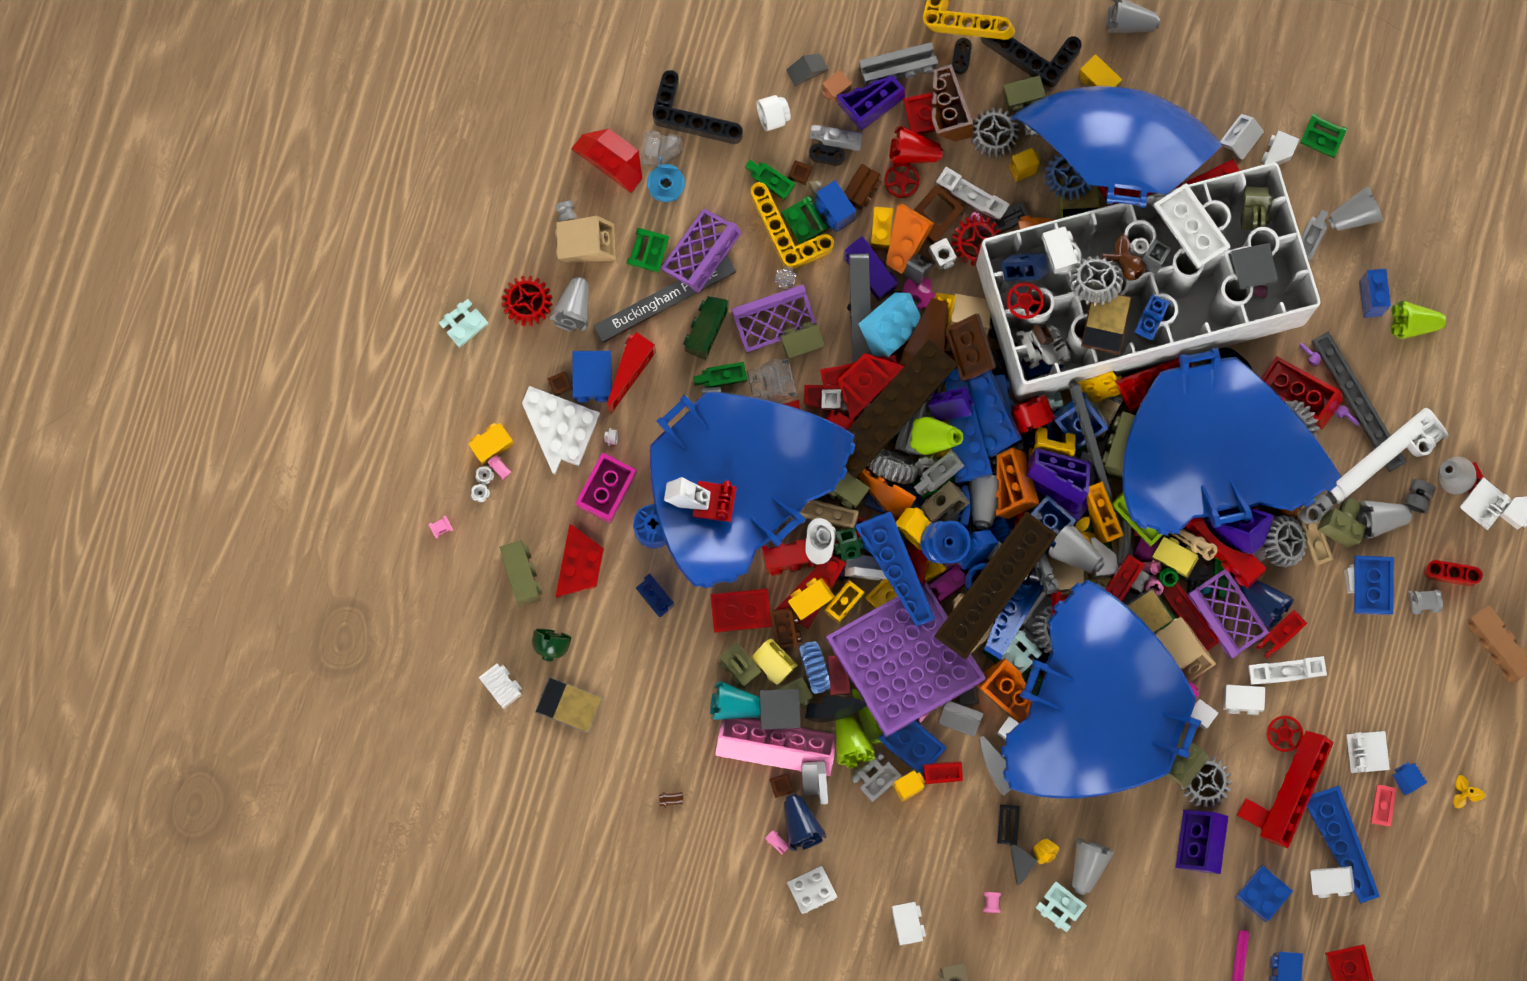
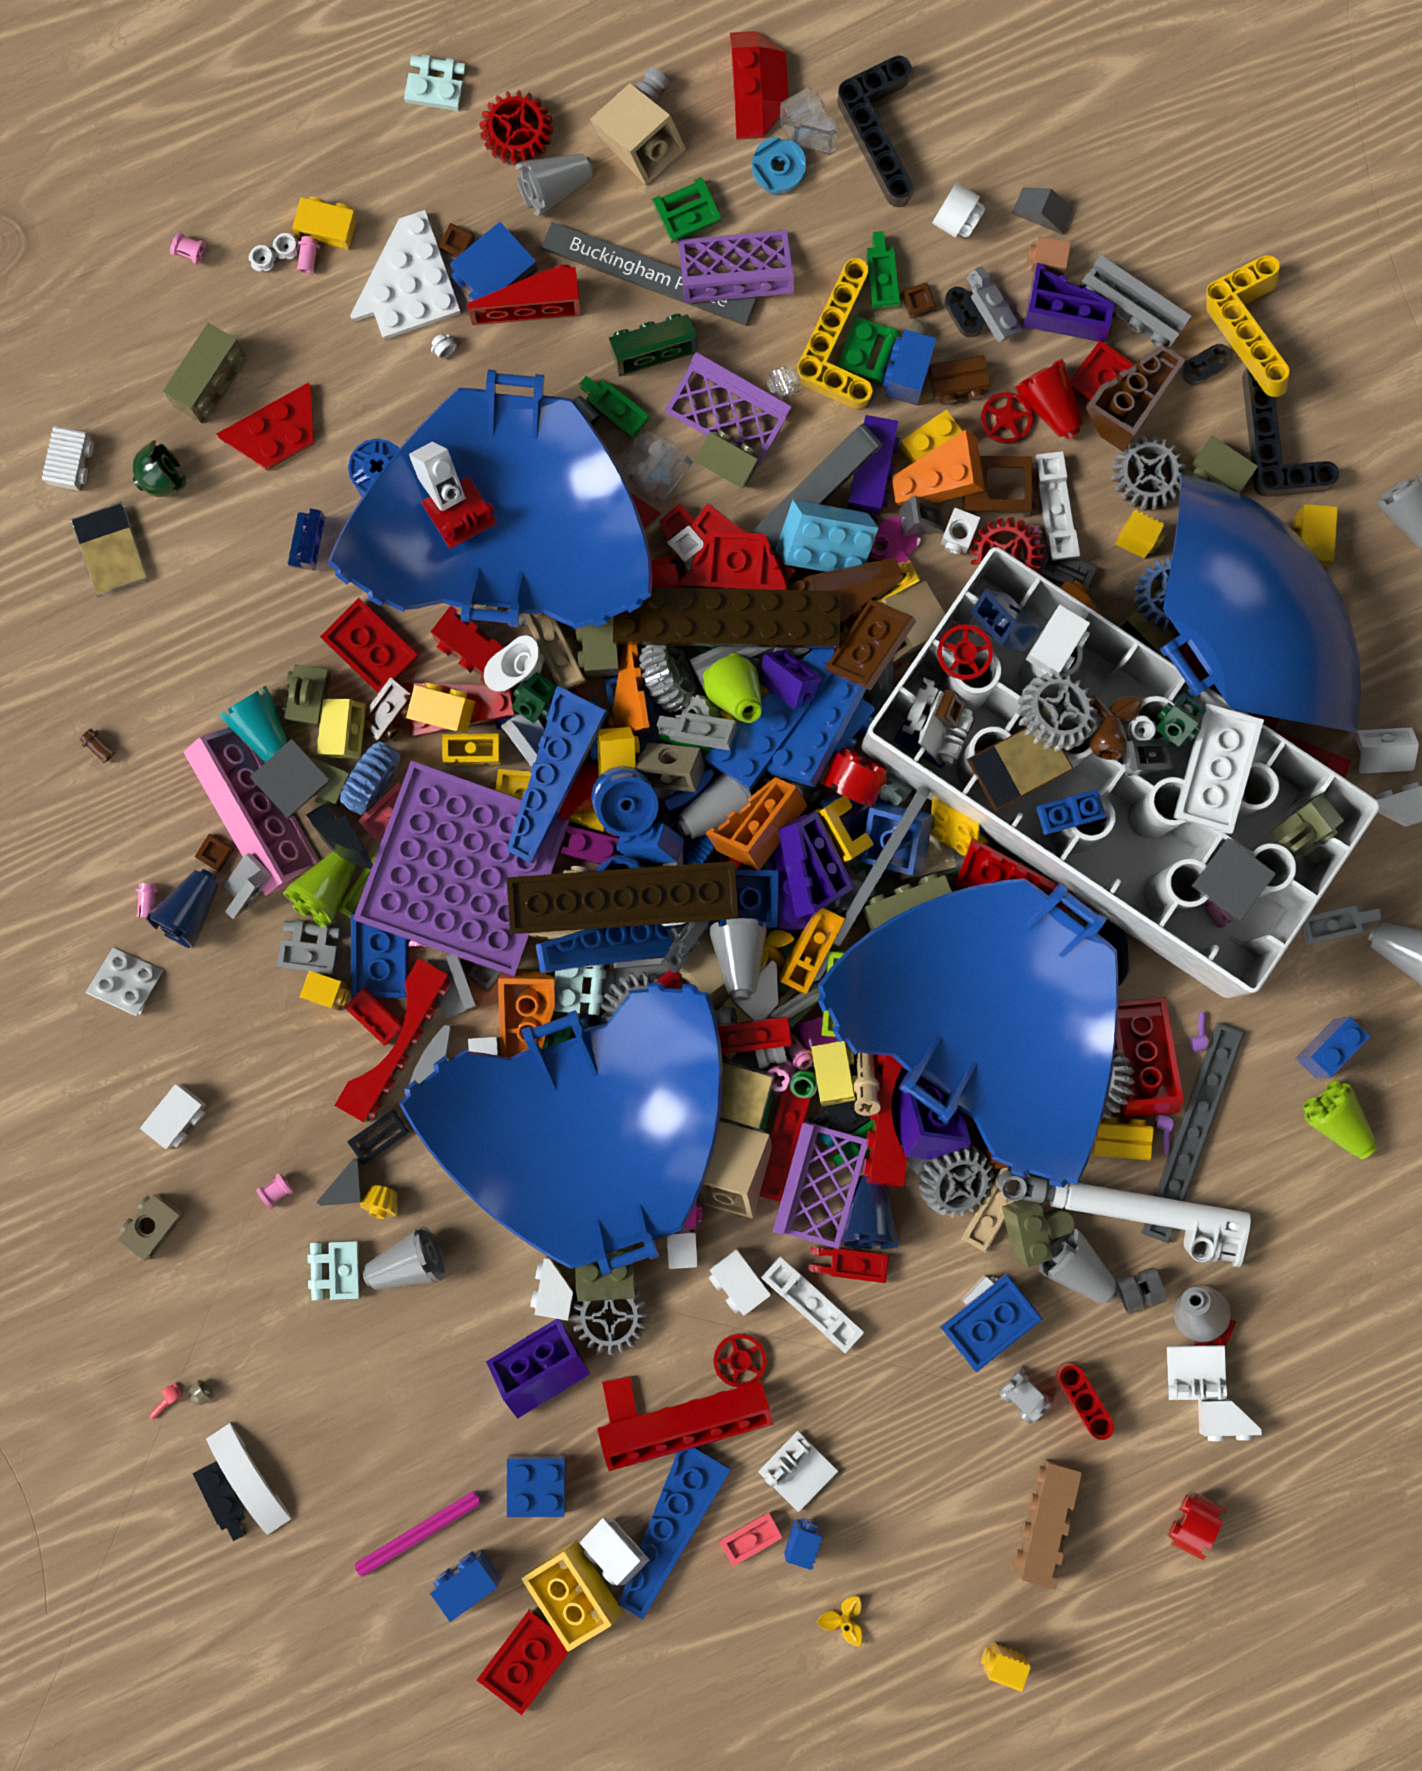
camera: 50 degrees right, 5 degrees up
(606, 488) = (379, 386): dark pink brick -> none
(950, 734) = (422, 988): none -> red arch
(1152, 223) = (1180, 720): none -> dark green brick
(1168, 799) = (554, 1292): none -> white slope
(1335, 437) = (1124, 1140): none -> yellow brick
(1337, 922) = (572, 1596): none -> yellow slope

